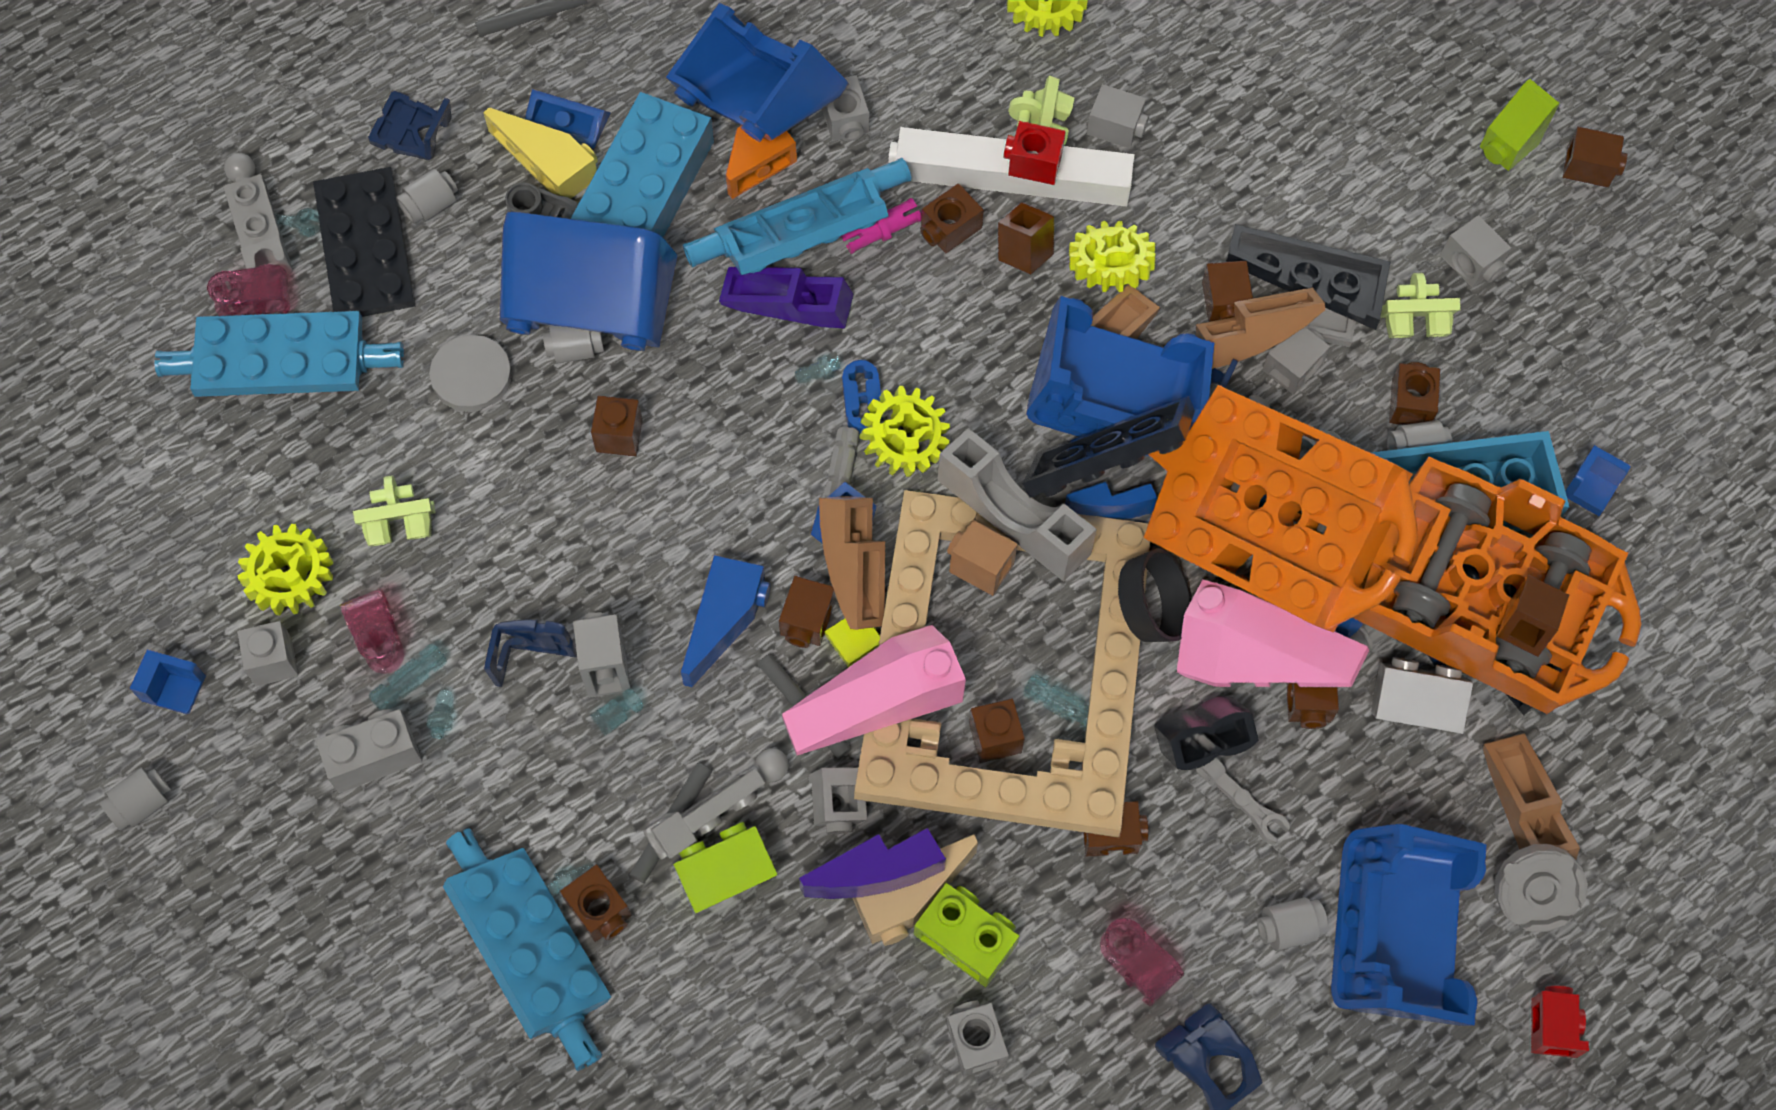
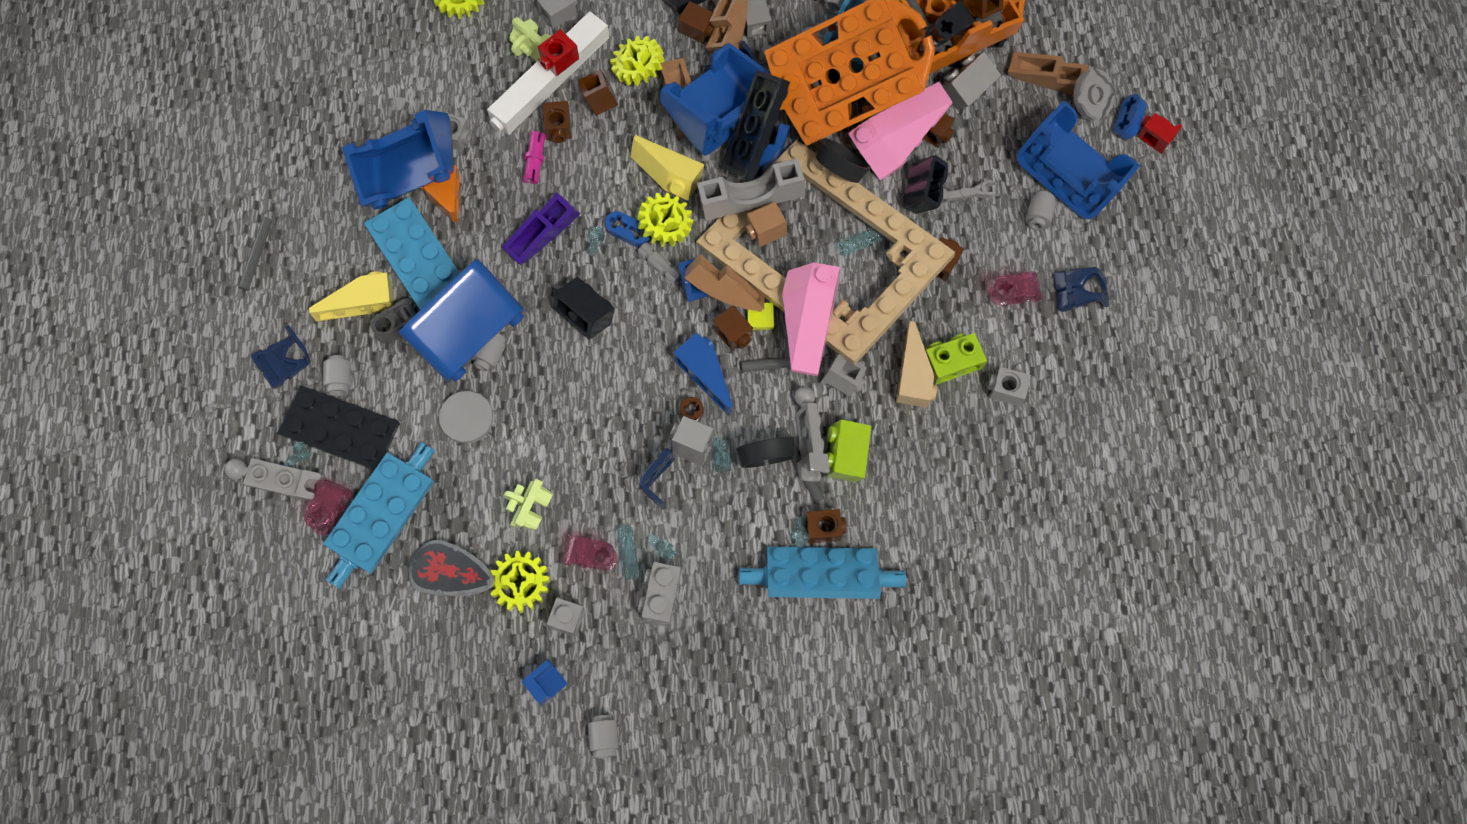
camera: 60 degrees left, 5 degrees up
(248, 477) = (448, 570): none -> shield
(578, 120) = (340, 274): blue slope -> none
(616, 426) = (558, 358): reddish brown brick -> none
(648, 760) = (773, 449): none -> black tyre
(652, 644) = (686, 403): none -> reddish brown bush
(706, 411) = (583, 308): none -> black brick
(801, 221) = (504, 192): dark azure plate -> none
(875, 869) = (902, 373): dark purple slope -> none
(983, 390) = (668, 168): none -> light yellow slope
(996, 730) = (859, 278): reddish brown brick -> none
(1453, 595) = (950, 23): none -> black piece
(1550, 965) = (1130, 116): none -> blue beam

